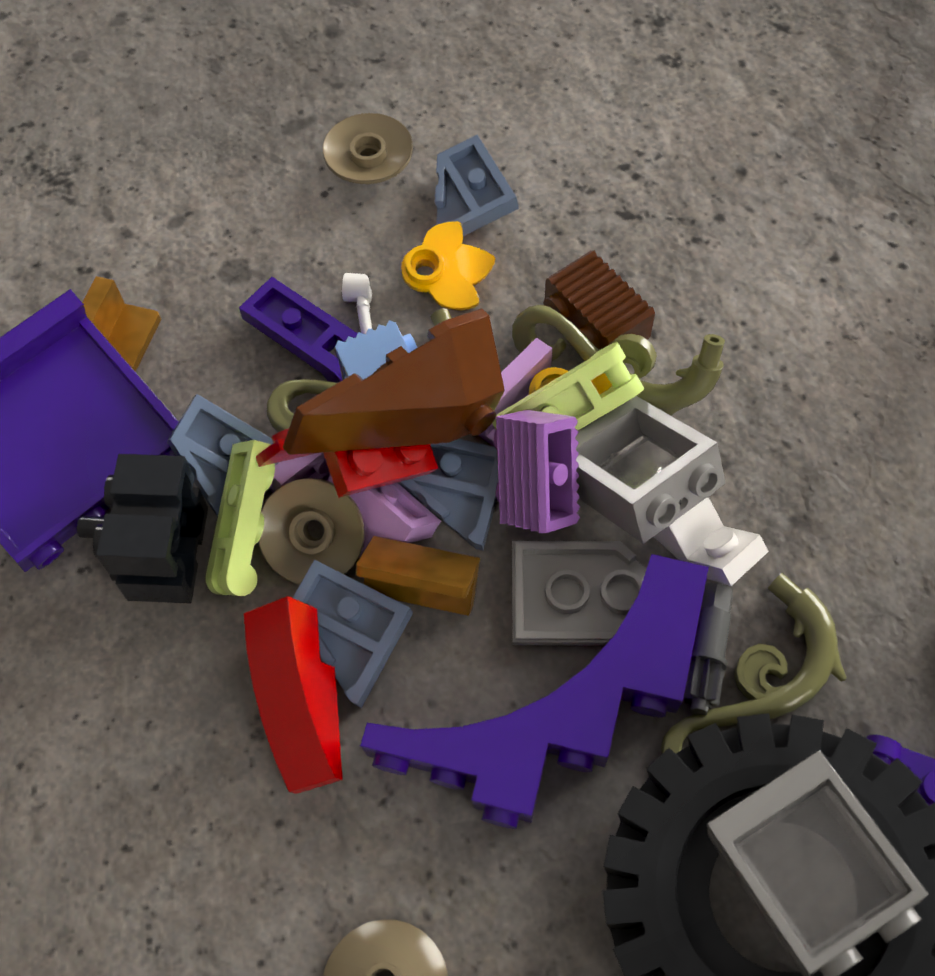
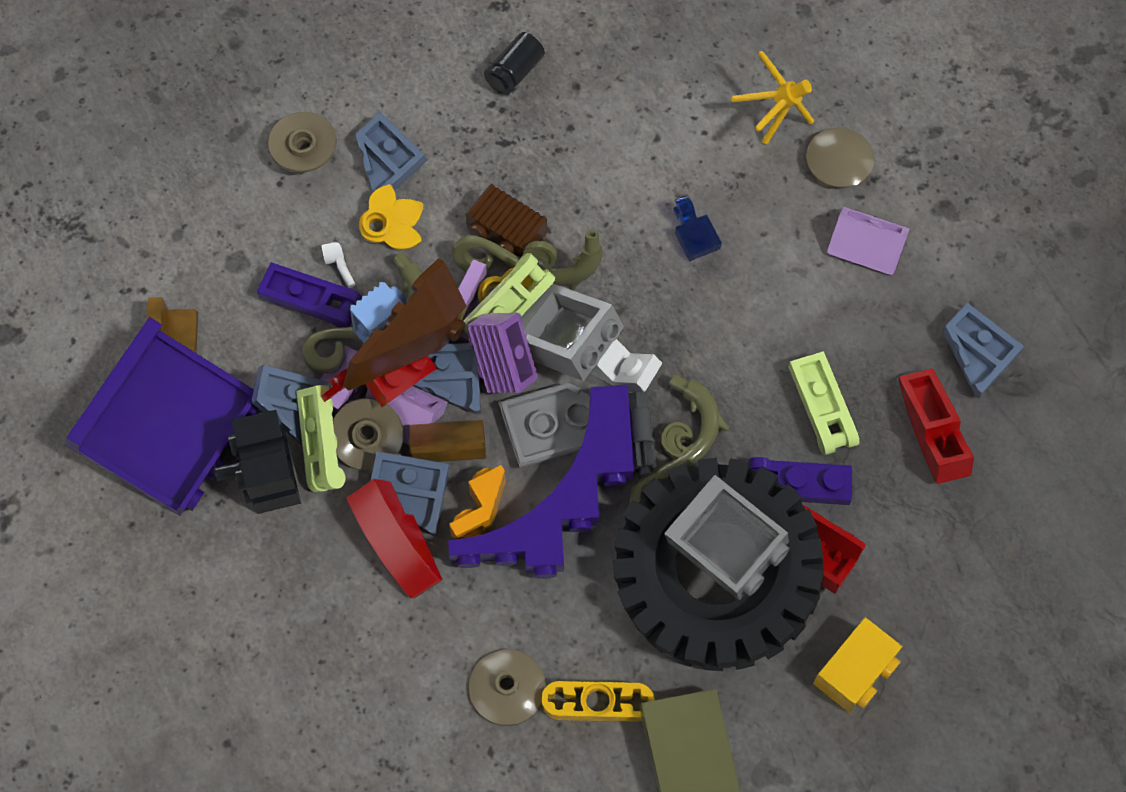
camera: 20 degrees left, 5 degrees up
(454, 664) = (486, 491): none -> light orange slope
(669, 121) = (514, 63): none -> black piece
(860, 391) = (694, 234): none -> clear blue plate

